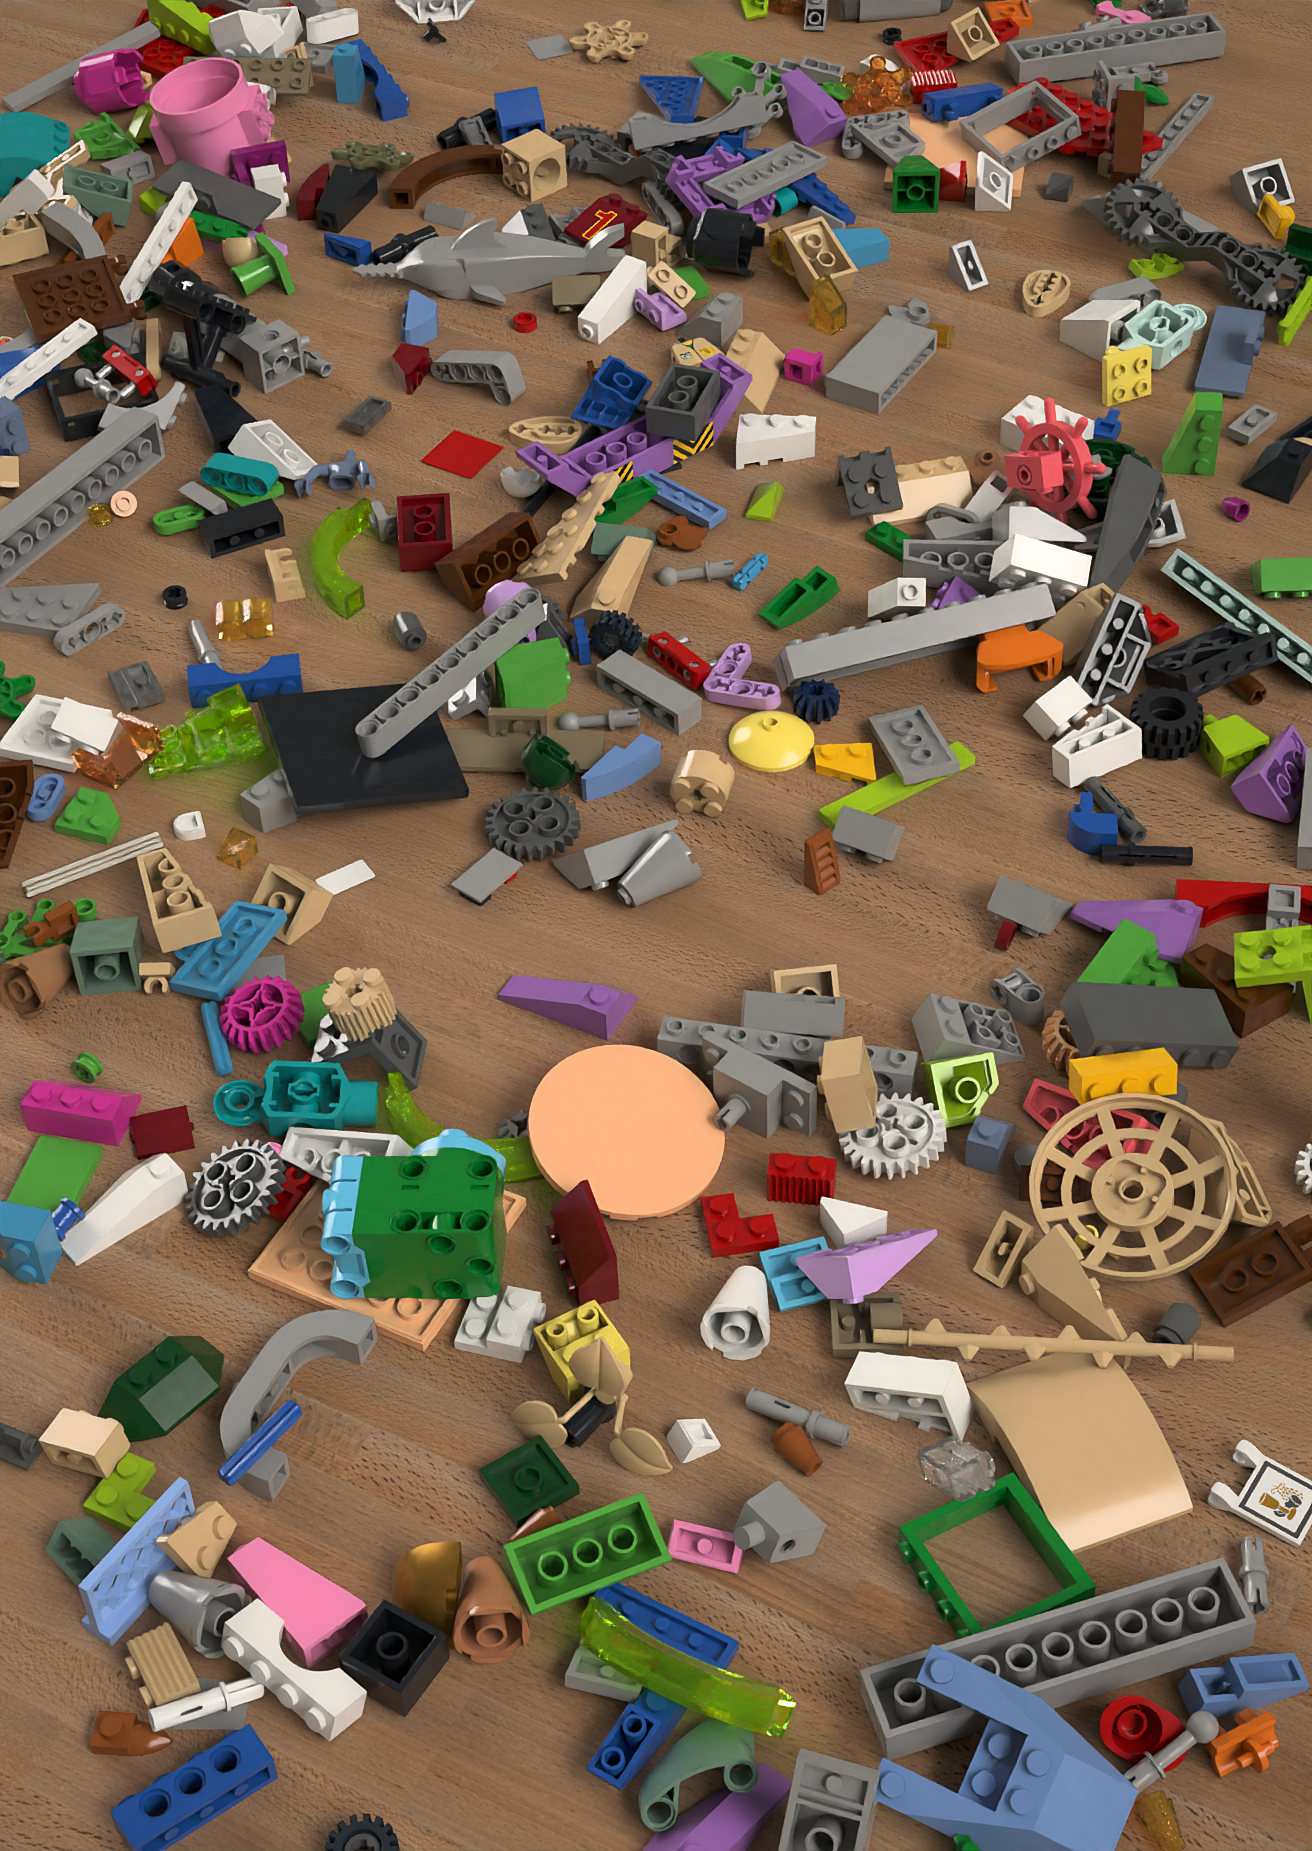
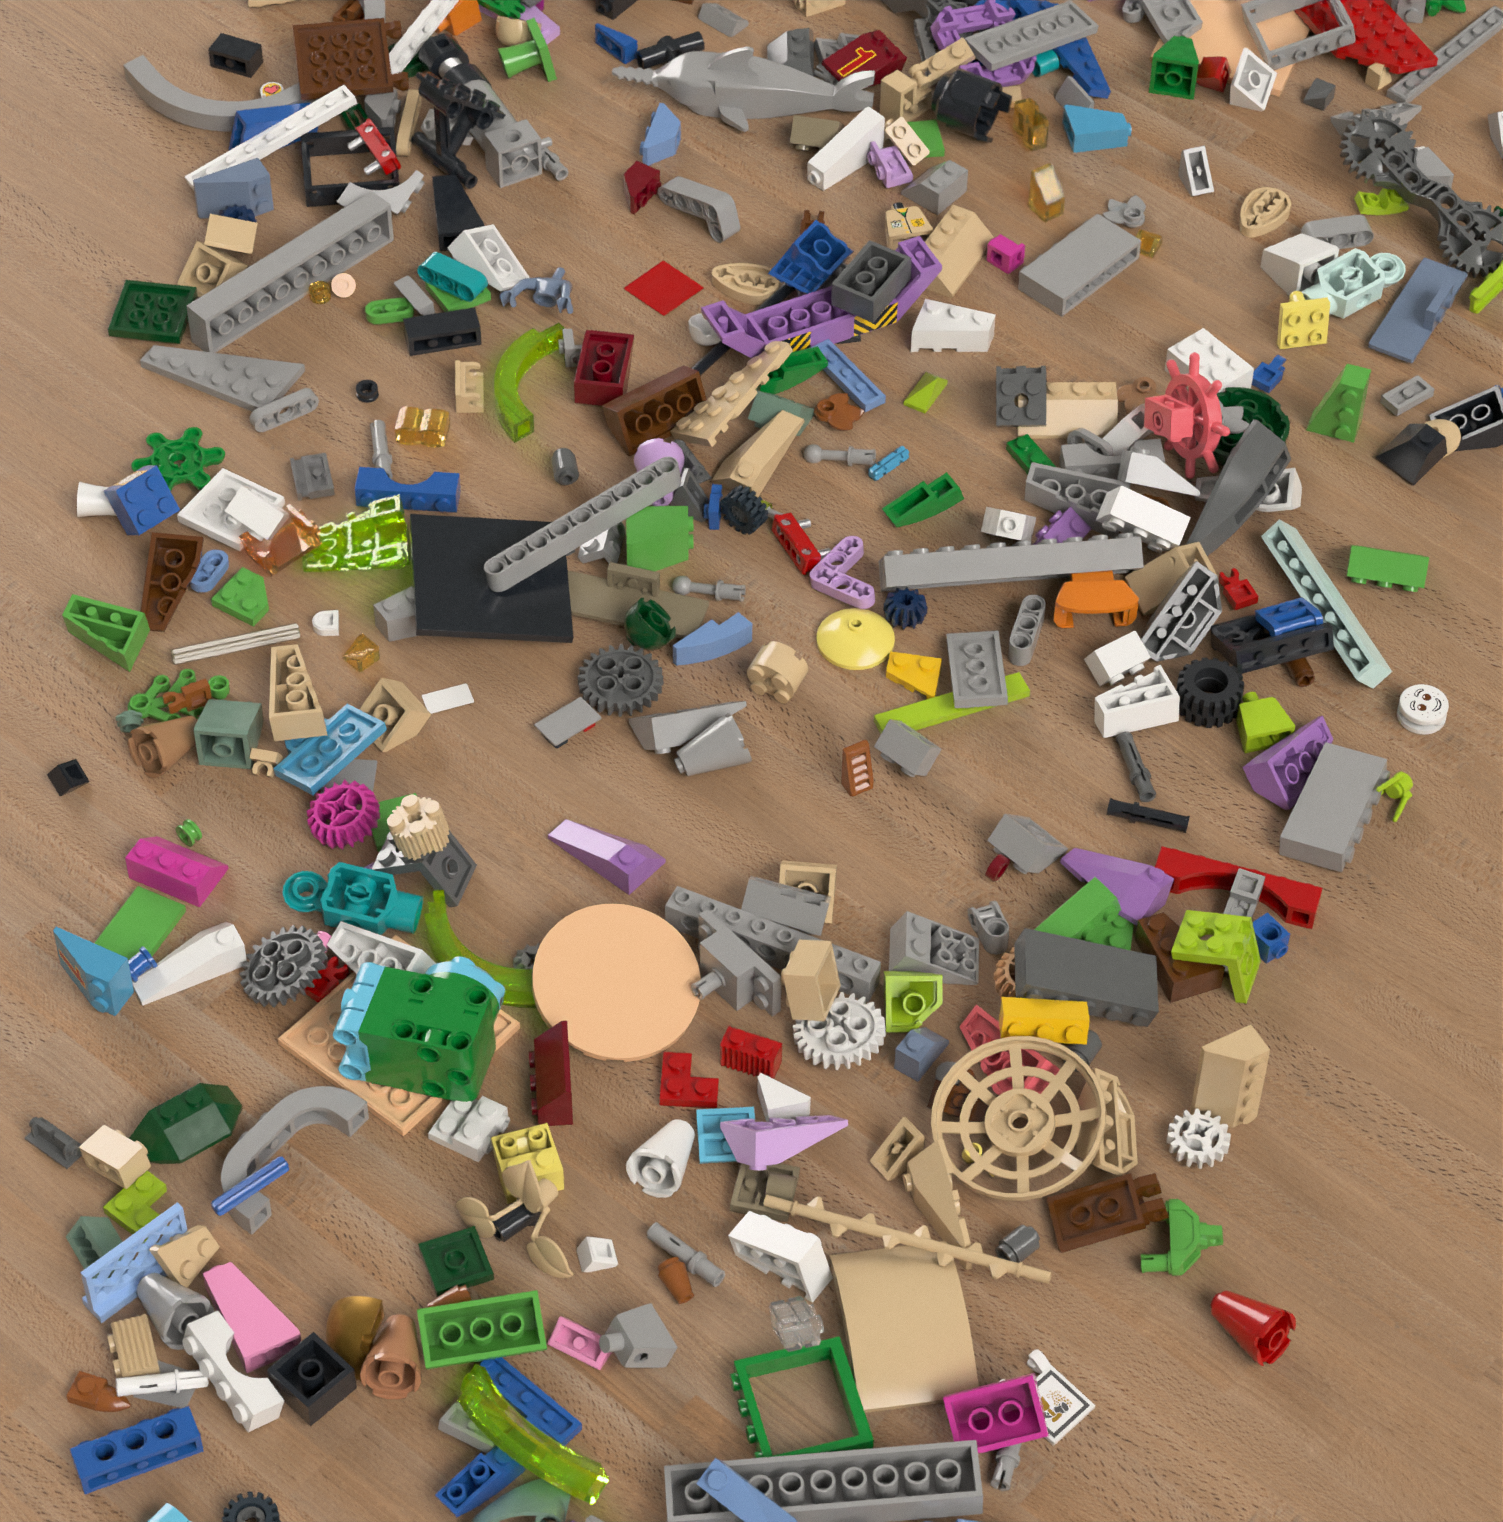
camera: 10 degrees right, 5 degrees up
(101, 388) = (348, 161): light grey pin -> none
(162, 1132) = (238, 902): dark red piece -> none
(216, 1039) = (302, 830): dark azure axle -> none
(367, 415) = (586, 231): flat silver plate -> none
(524, 322) = (760, 154): red tile -> none
(650, 692) = (760, 570): light grey brick -> none
(686, 208) = (942, 63): none -> tan plate
(818, 252) = (1053, 136): tan slope -> none
(951, 699) = (1026, 630): none -> light grey beam
(1089, 829) = (1105, 781): blue brick -> none
(1127, 136) = (1396, 56): reddish brown wedge -> none
(1223, 635) = (1288, 616): none -> blue plate
(1229, 1521) = (998, 1413): none -> dark pink slope
(1236, 508) = (1359, 482): magenta hose -> none

